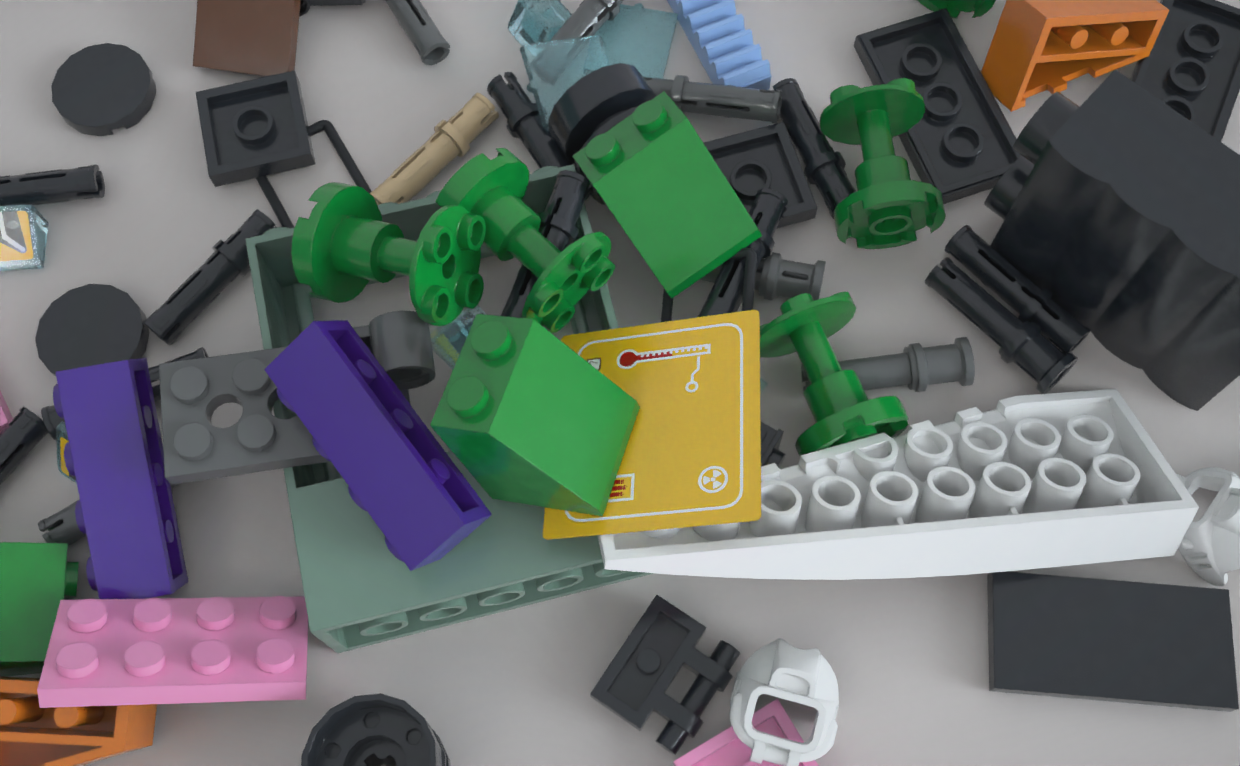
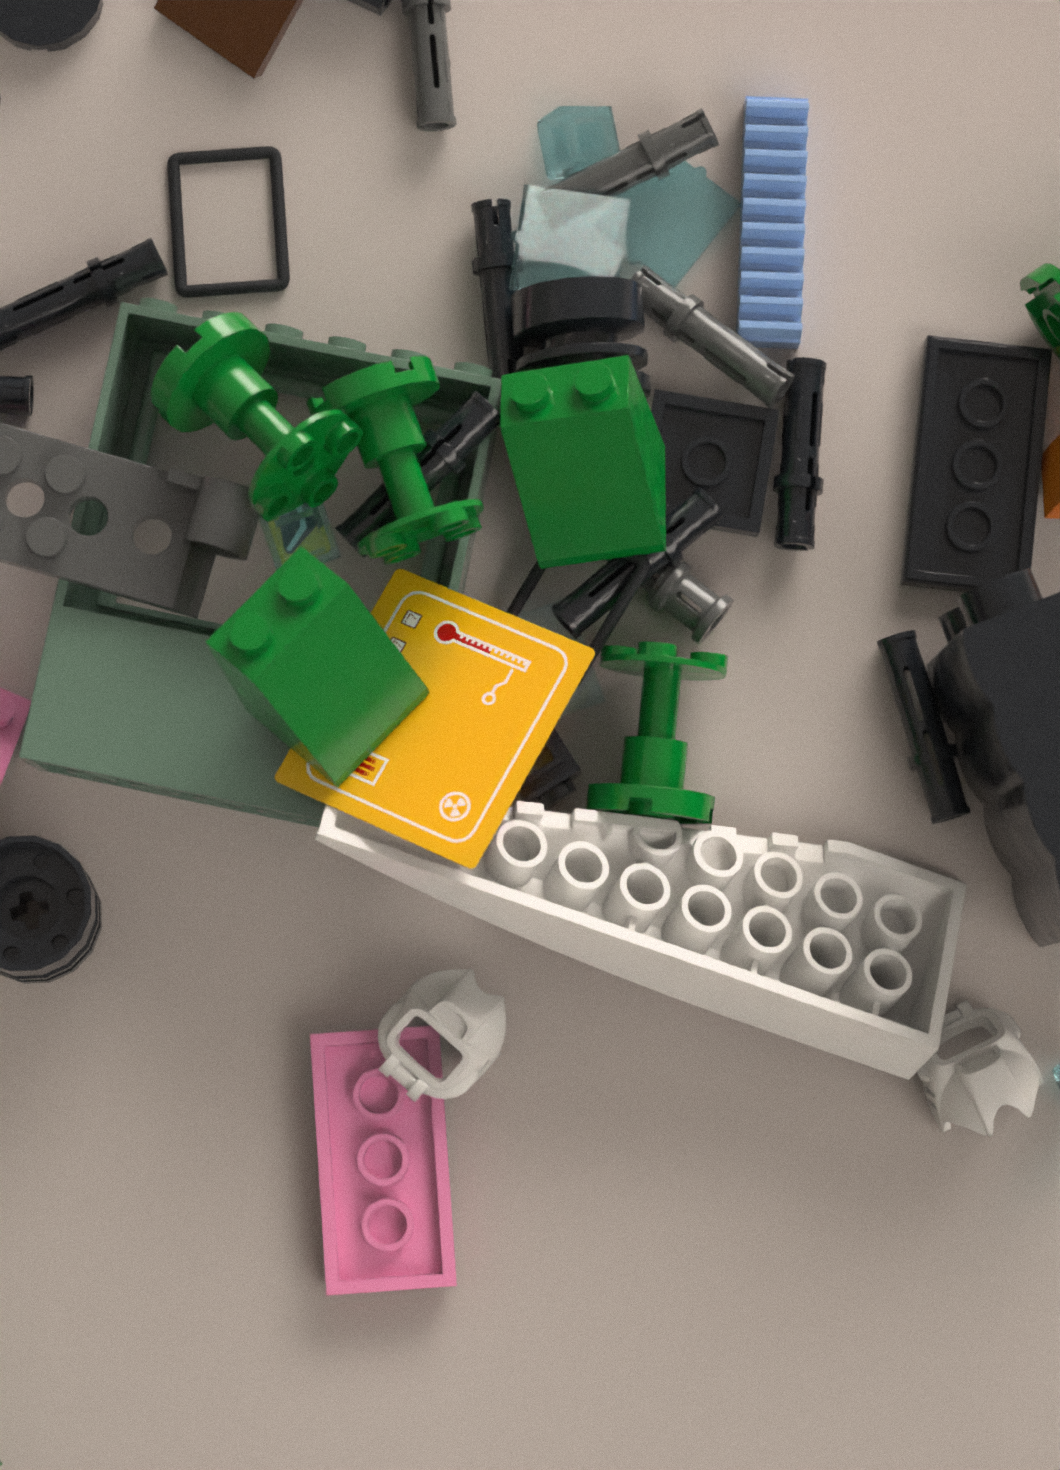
camera: 20 degrees right, 15 degrees up
(254, 128) = (191, 128): black plate -> none
(376, 443) = (156, 610): dark purple brick -> none
(447, 143) = (375, 259): tan pin -> none
(650, 662) = (336, 930): black plate -> none
(887, 201) = (839, 543): green piece -> none
(914, 367) = (763, 761): dark grey pin -> none
(1018, 340) = (889, 785): black pin -> none
(1111, 641) = (798, 1128): black tile -> none

